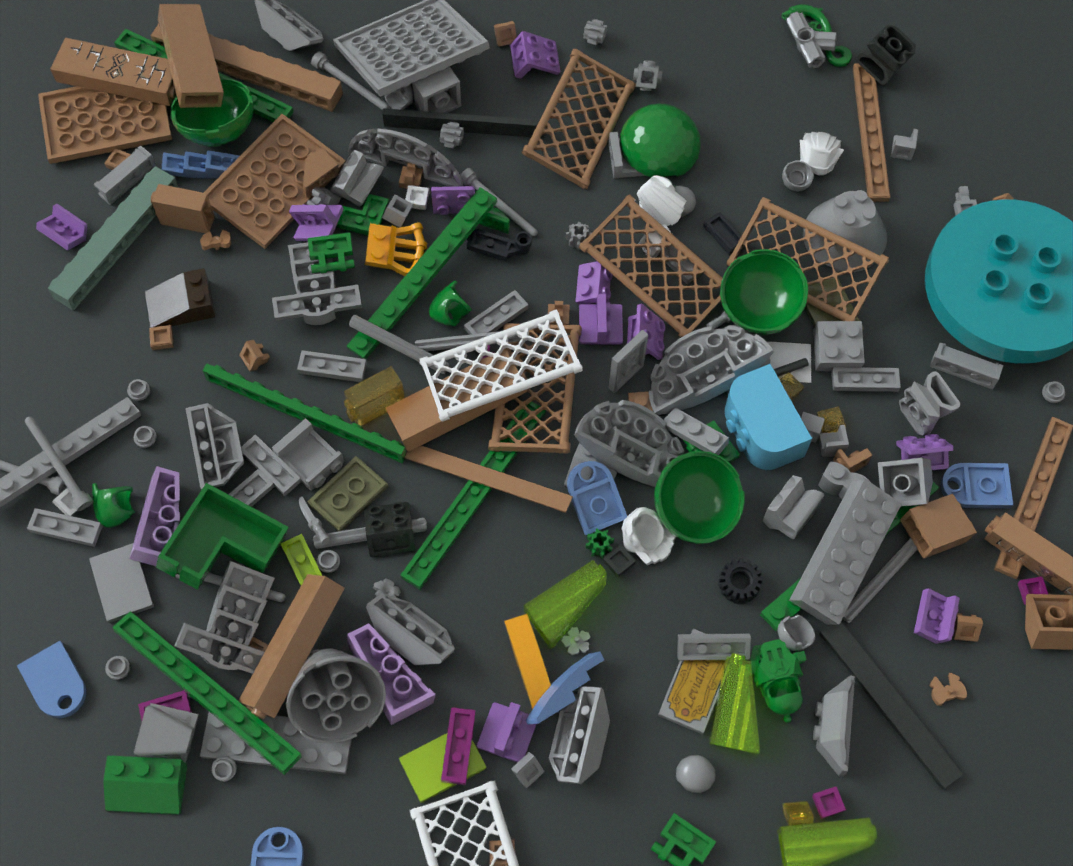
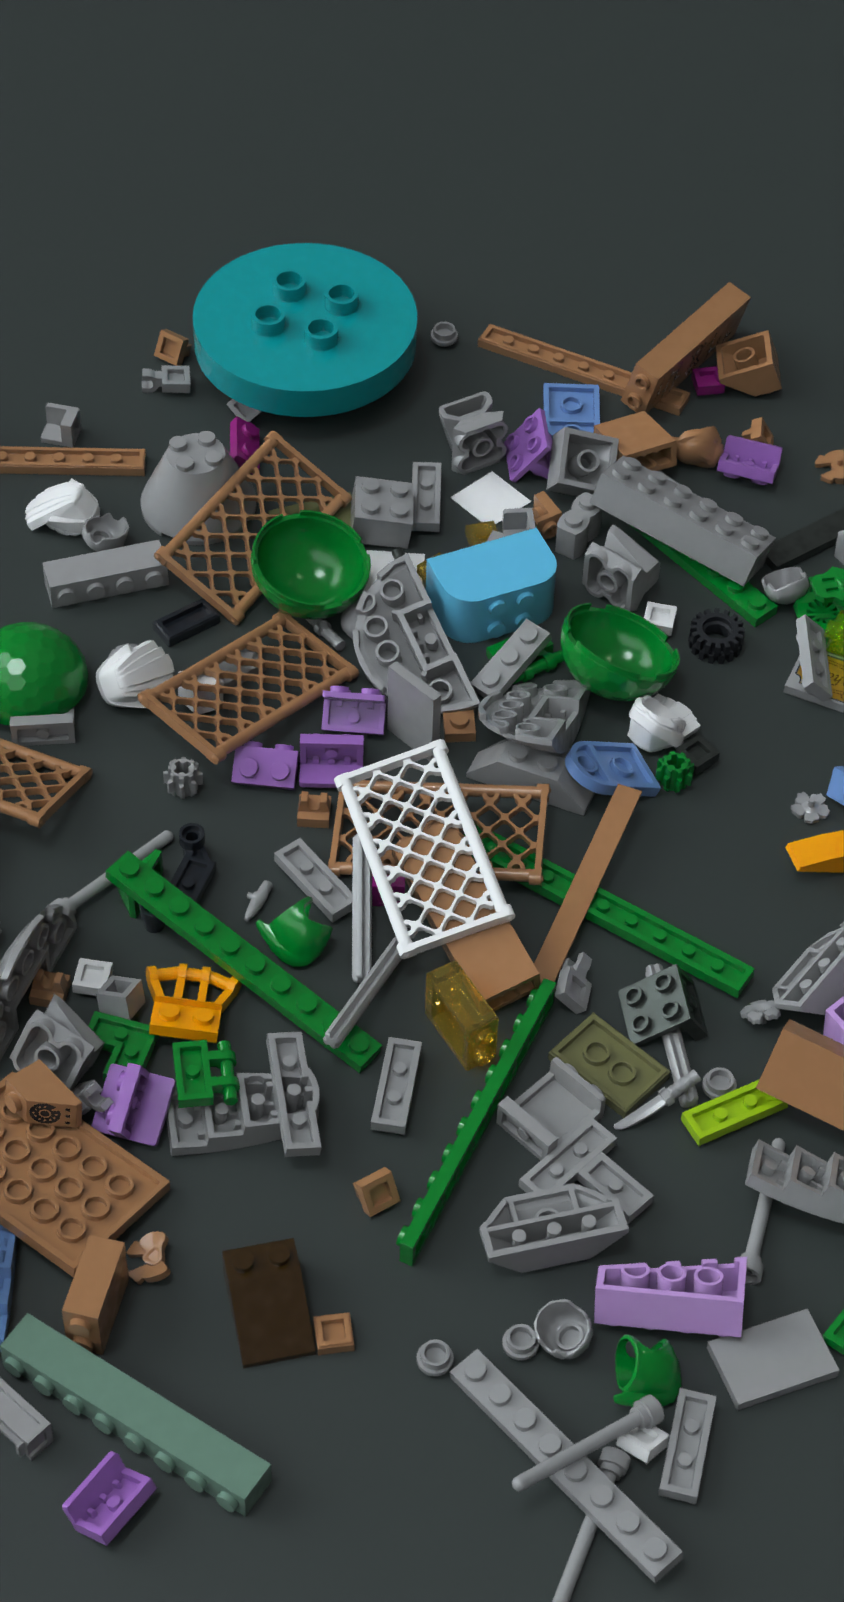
camera: 90 degrees left, 15 degrees down
(145, 457) = (563, 1329): none -> light grey hair
(217, 526) = (702, 1206): green piece -> none
(405, 471) = (572, 985): none -> light grey plate
(450, 199) = (102, 926): medium lavender bracket -> none
(482, 285) = (257, 899): none -> light grey helmet
(562, 604) = (761, 808): clear neon green slope -> none
(754, 540) = (662, 616): none -> white plate
(758, 175) = (104, 574): none -> light grey brick
(875, 427) = (489, 498): none -> white sticker
(904, 257) = (243, 440): none -> magenta plate
(945, 575) = (699, 447): none -> medium nougat hair
(966, 366) = (408, 403): light grey container -> none

